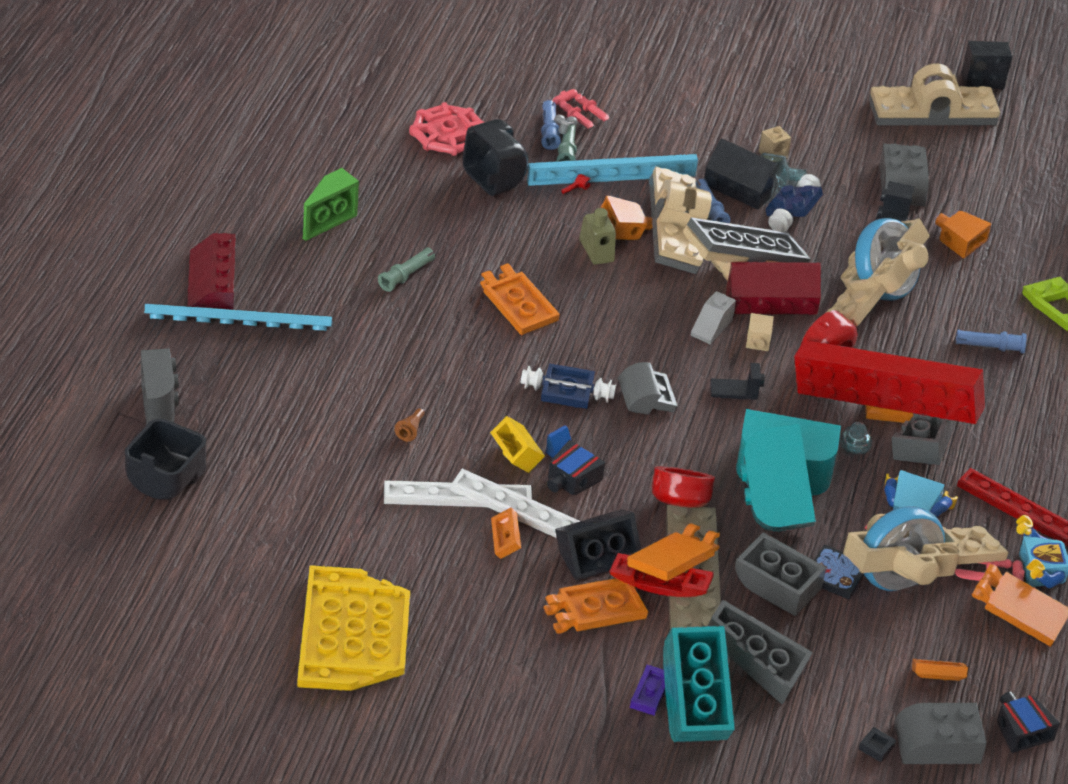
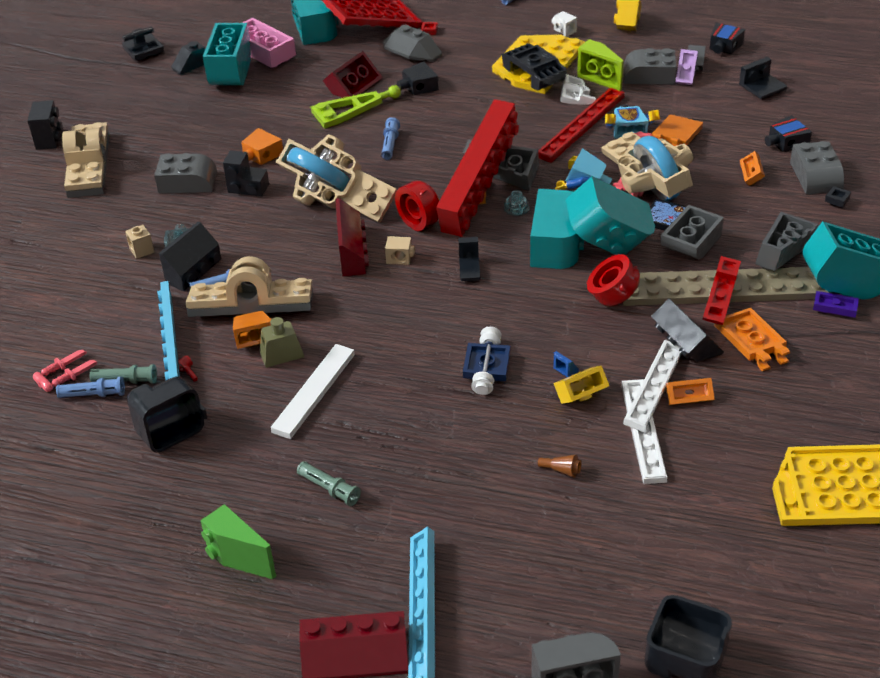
camera: 85 degrees left, 0 degrees up
(443, 127) = (84, 452): coral plate -> none
(518, 300) = (366, 400): orange tile -> none
(539, 266) = (312, 391): none -> white tile
(560, 119) = (93, 371): light grey piece -> none
(574, 469) = (598, 350): black torso -> none
(646, 389) = (488, 312): dark grey brick -> none
(675, 553) = (703, 279): orange tile -> none
(714, 317) = (383, 275): light grey slope -> none
(738, 243) = (310, 247): dark grey piece -> none
(793, 202) = (227, 230): dark blue plate -> none

